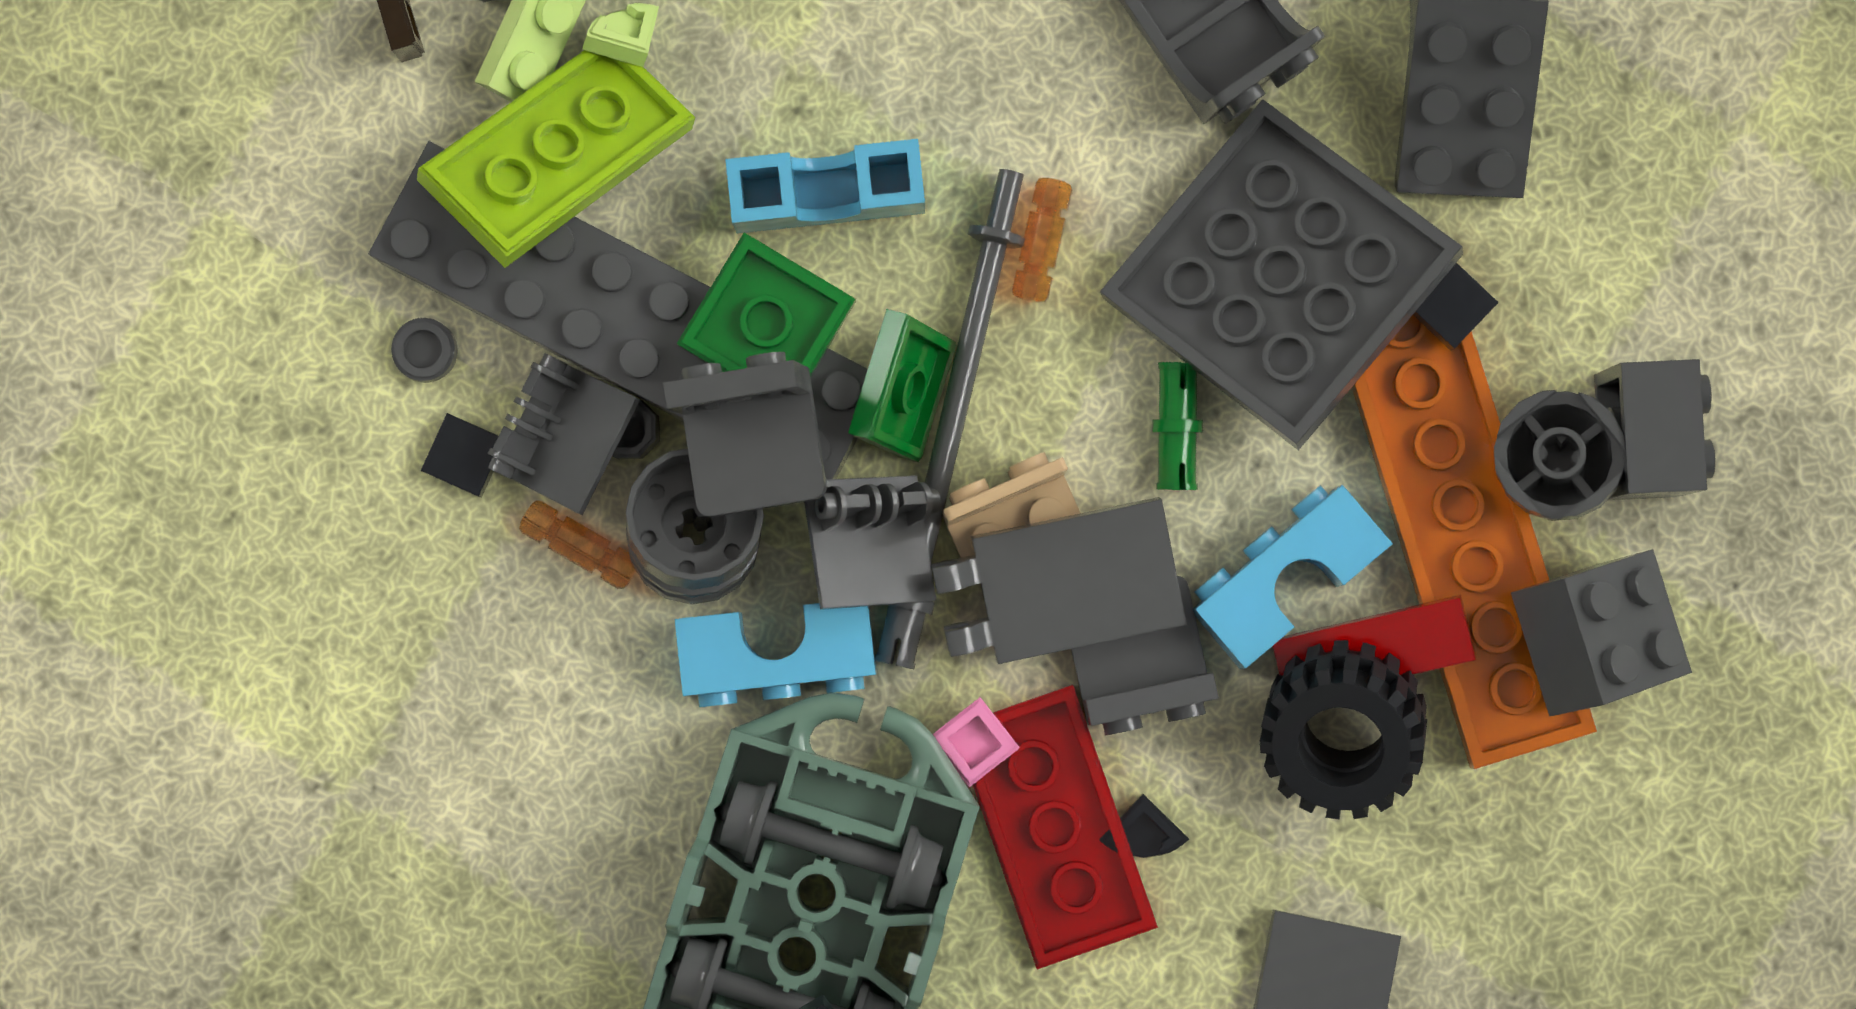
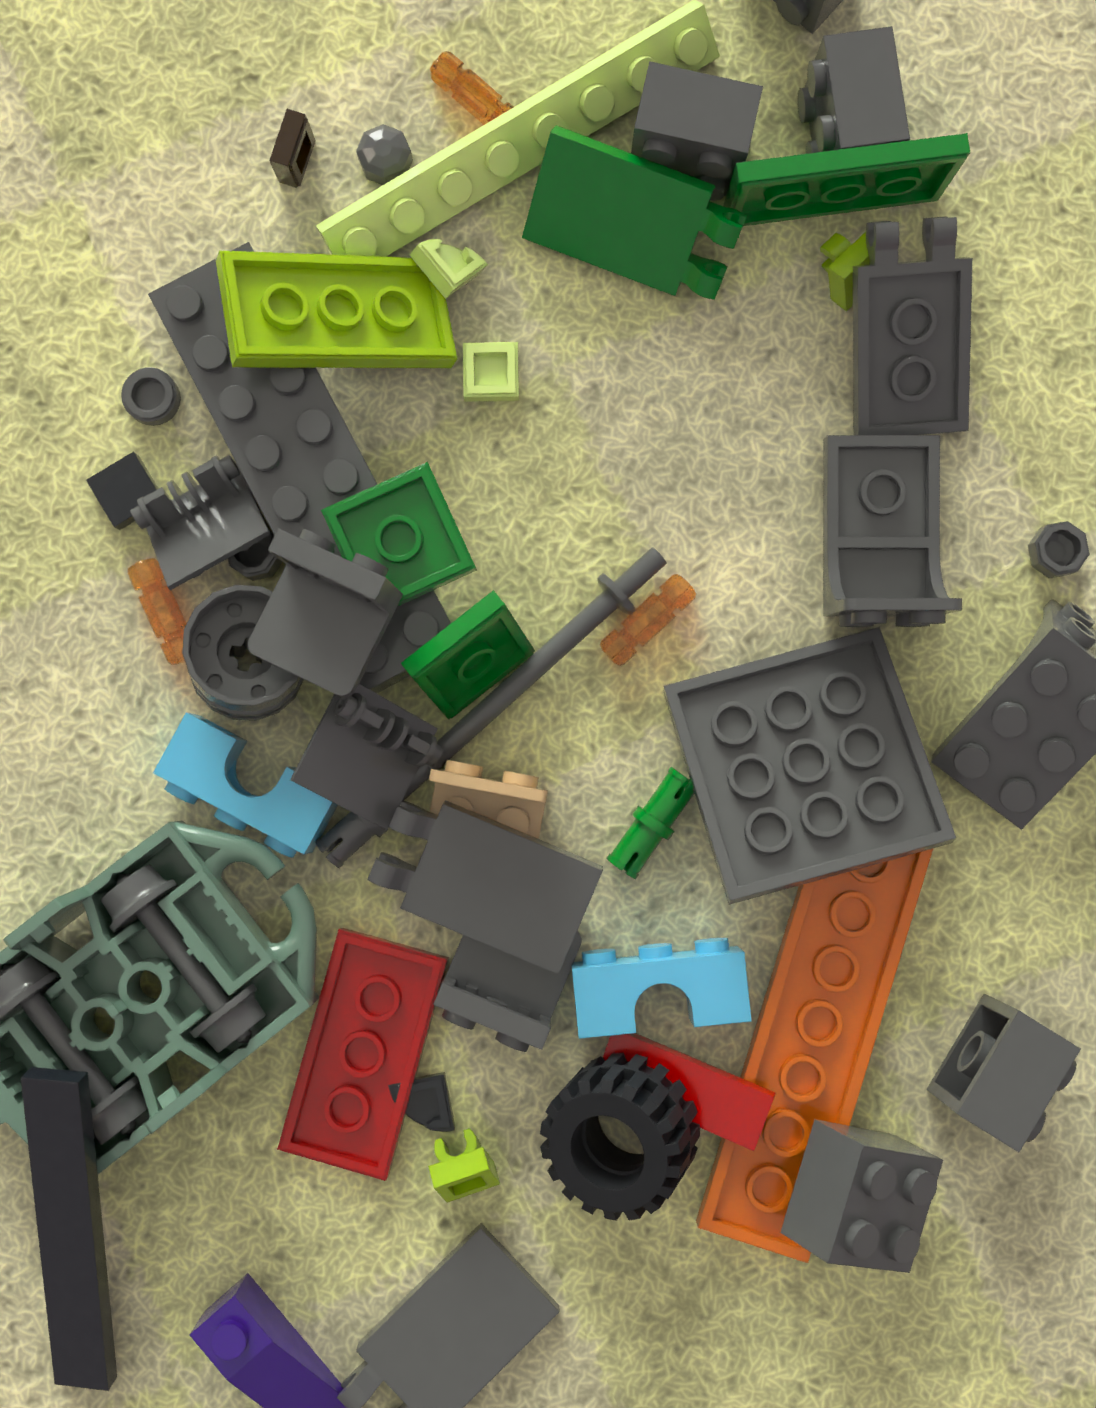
camera: 35 degrees right, 0 degrees up
(731, 106) = (490, 371): none -> yellowish green tile
(847, 187) = (494, 464): medium azure arch -> none
(975, 741) = (345, 952): bright pink tile -> none
(1225, 869) = (465, 1173): none -> lime tile
(1455, 307) = (918, 878): black tile -> none
(1559, 455) = (923, 1045): dark grey cylinder -> none

